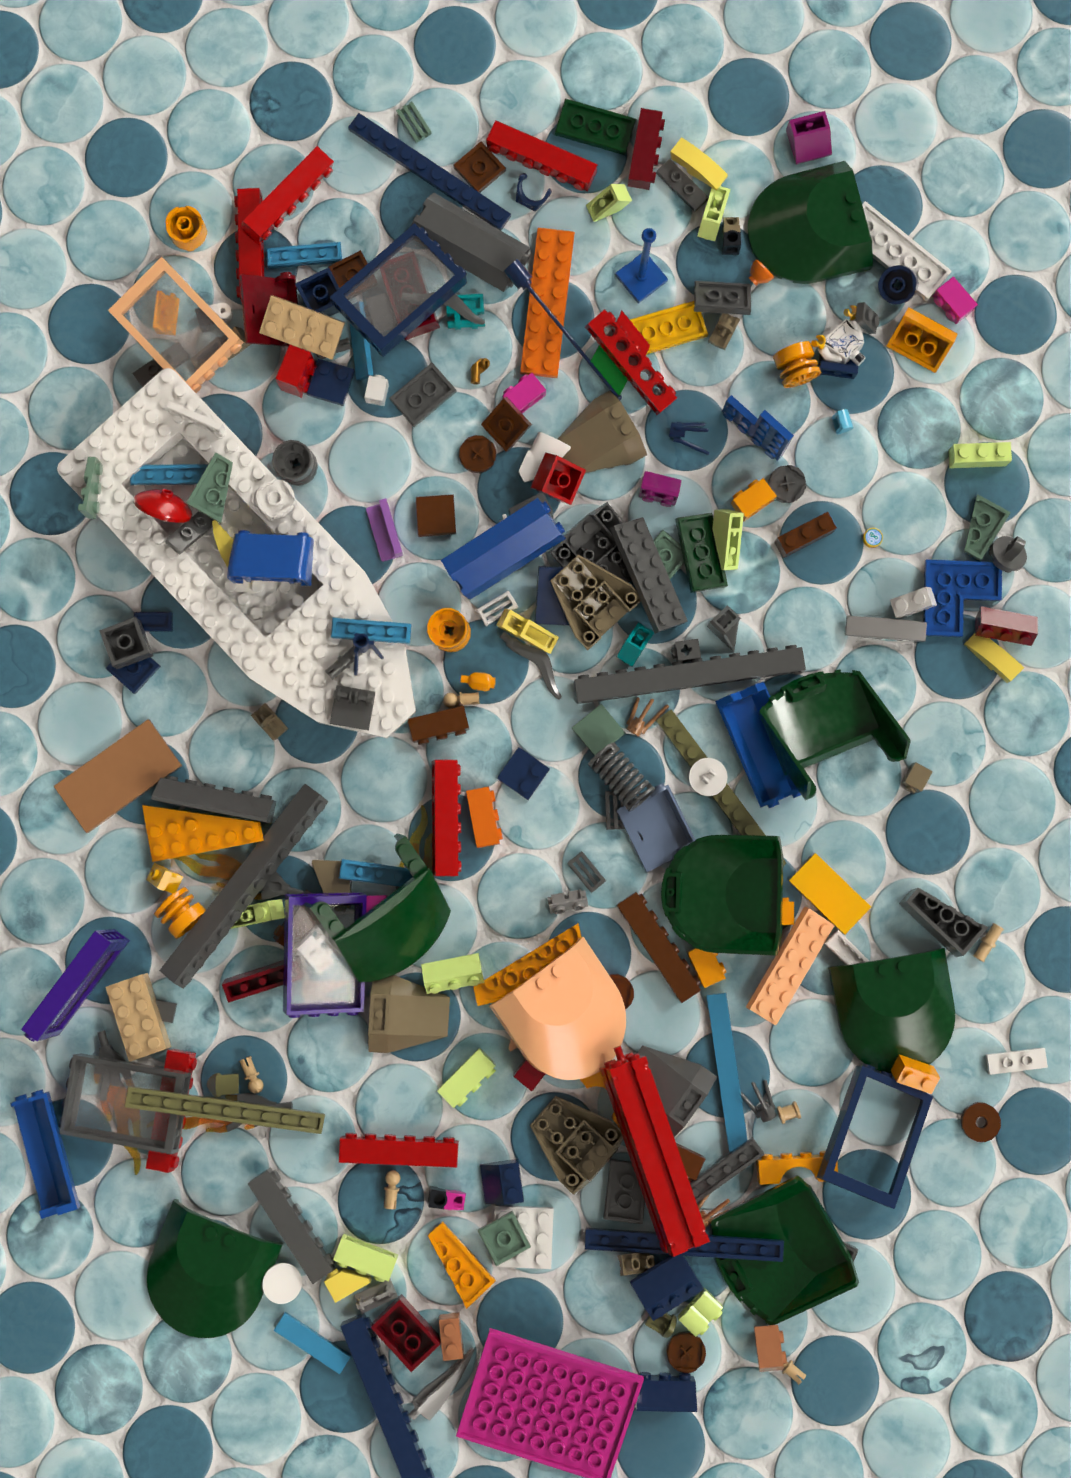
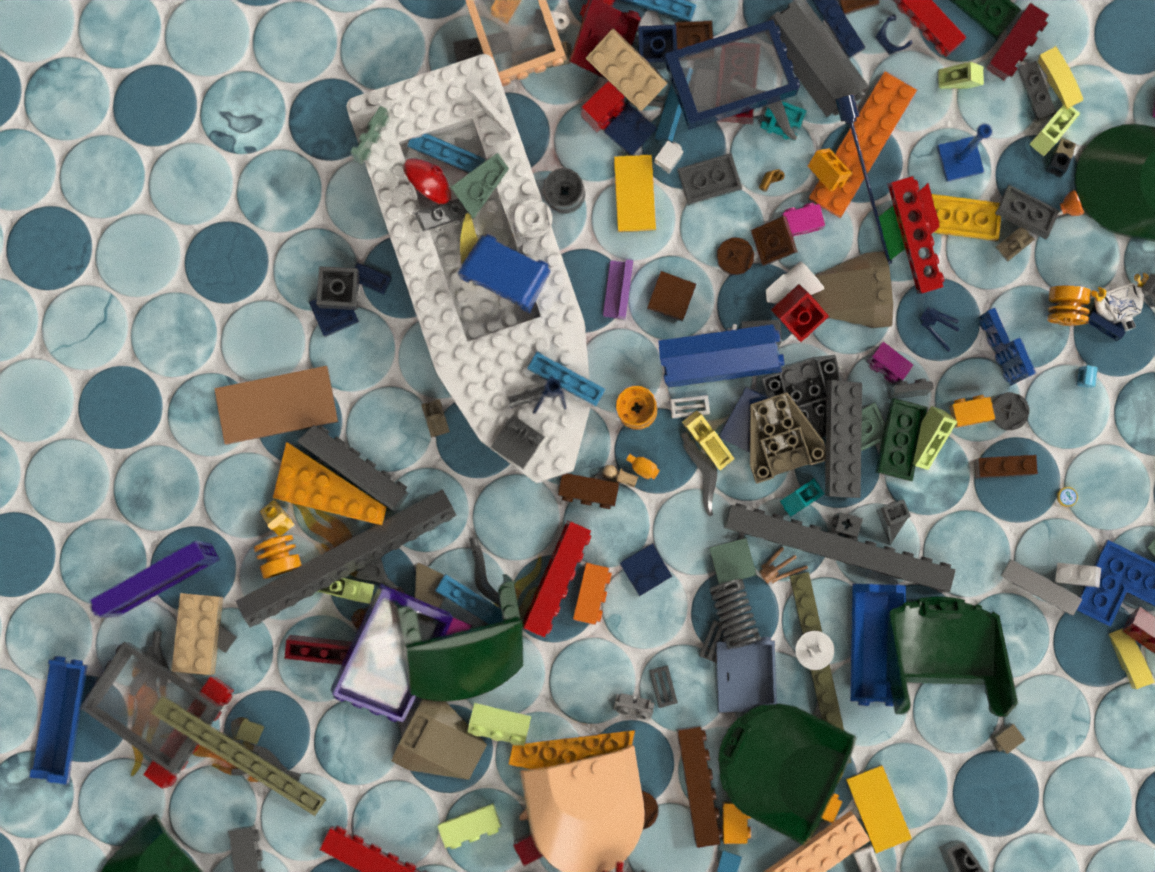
camera: 25 degrees right, 0 degrees up
(255, 1085) = (275, 743): tan pin -> none
(360, 437) = (634, 193): none -> yellow tile
(374, 845) = (480, 573): none -> dark grey piece
(527, 337) = (829, 169): none -> light orange hinge
(684, 506) = (904, 390): none -> dark grey tile

